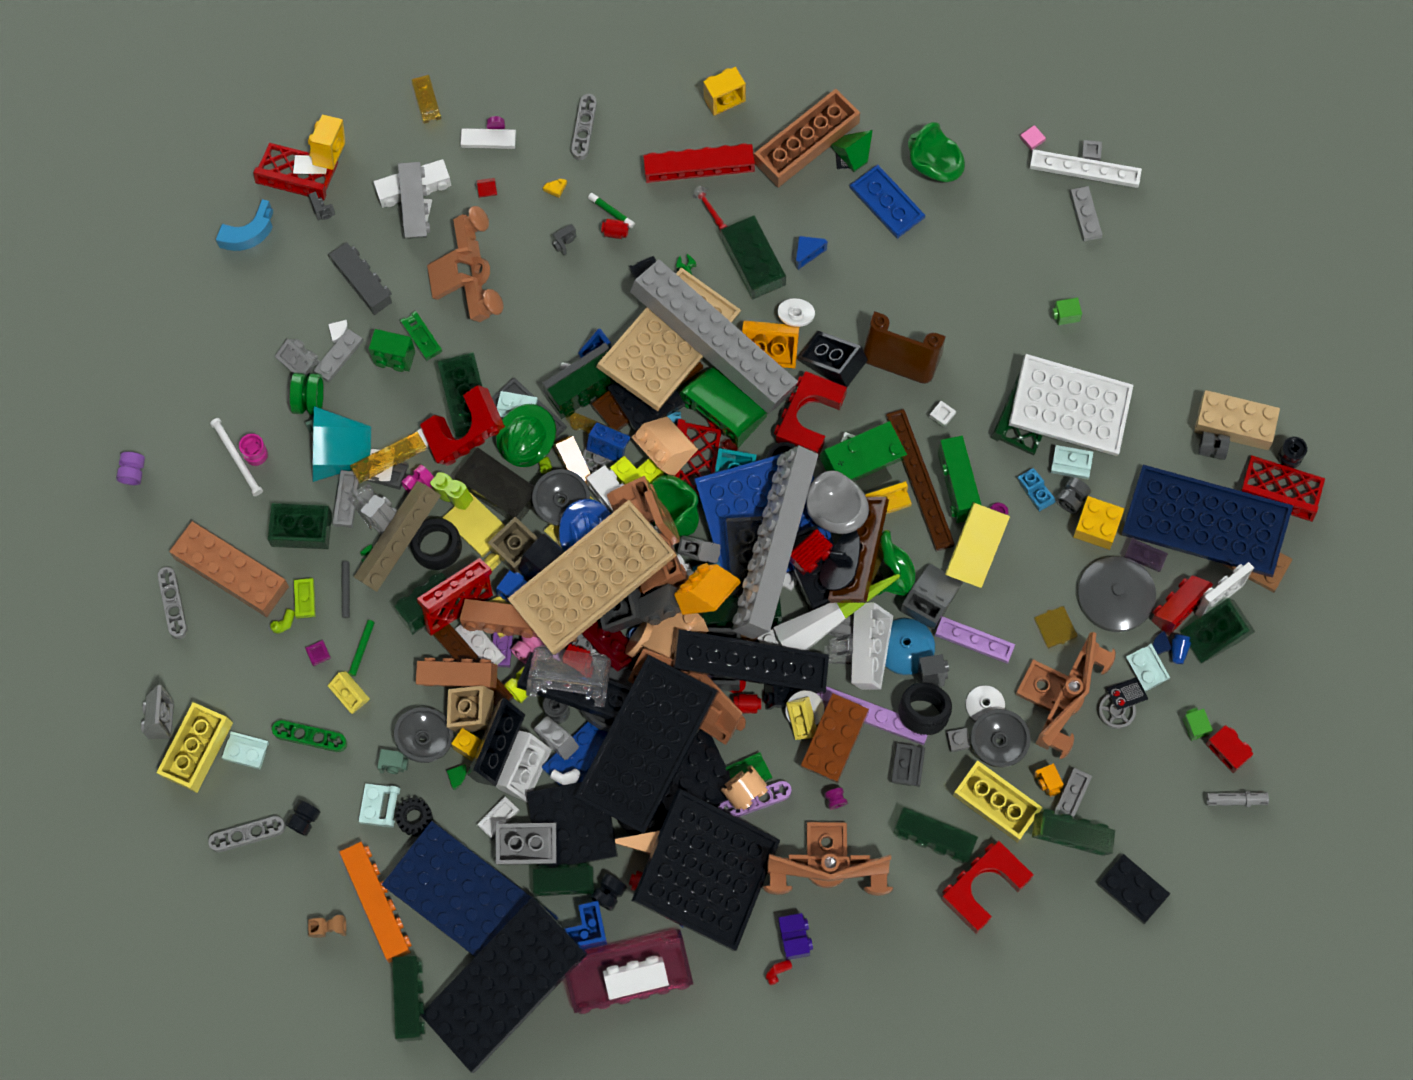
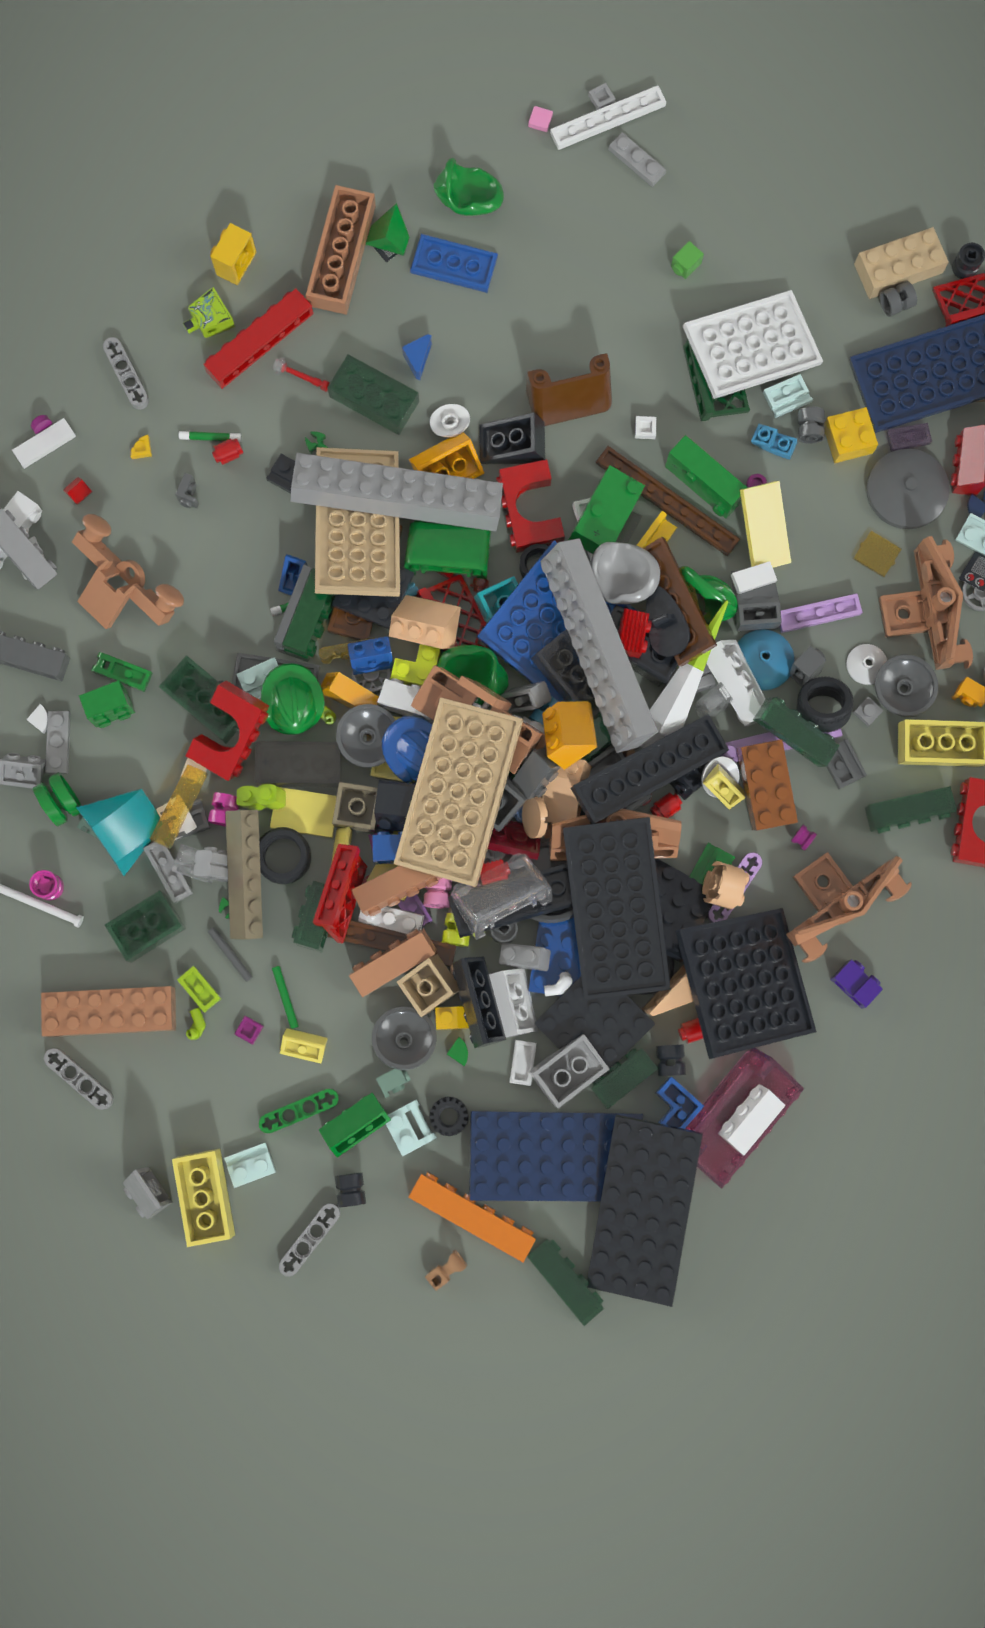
camera: 40 degrees left, 10 degrees up
(340, 772) = (354, 1124): none -> green brick
(675, 123) = (209, 315): none -> lime torso
(776, 969) = (861, 1031): red arm -> none
(885, 712) = (796, 732): none -> clear green brick
(940, 577) = (753, 577): none -> white tile

